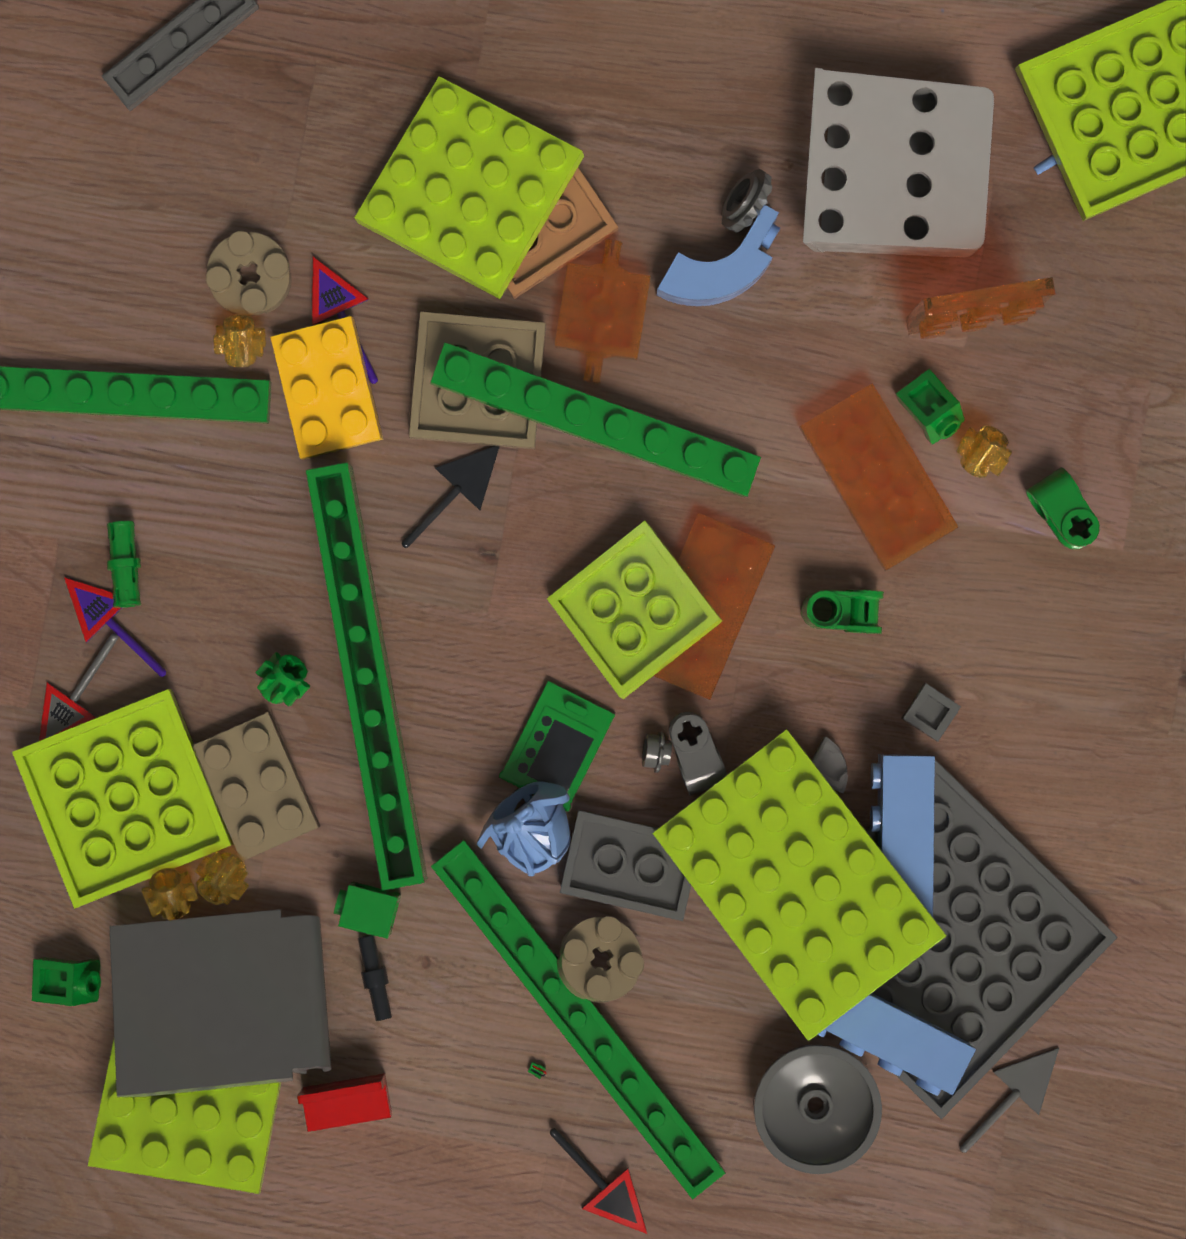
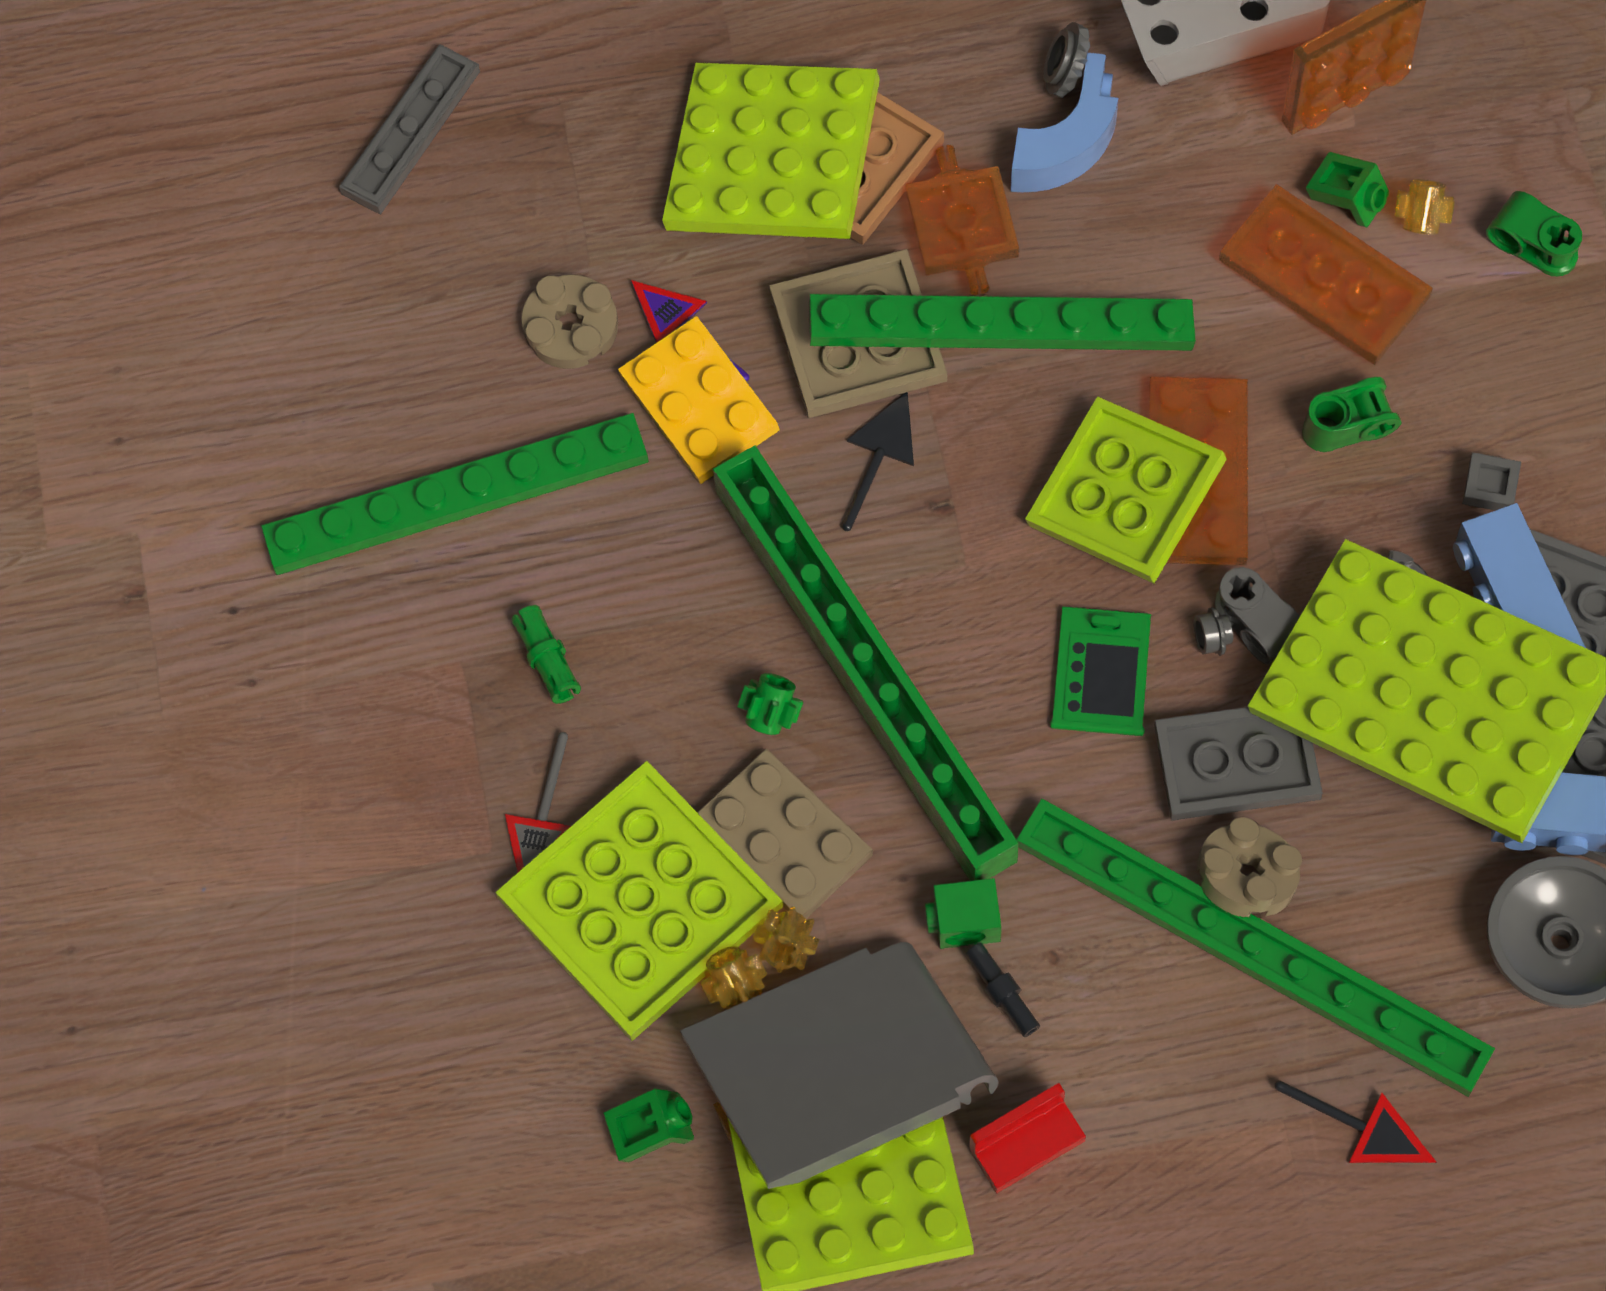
camera: 15 degrees left, 20 degrees down
(95, 609) = (534, 713): piece -> none
(239, 340) = (587, 382): clear yellow gear -> none
(535, 832) = (1110, 749): medium blue piece -> none
(537, 1070) = (1230, 1026): green piece -> none

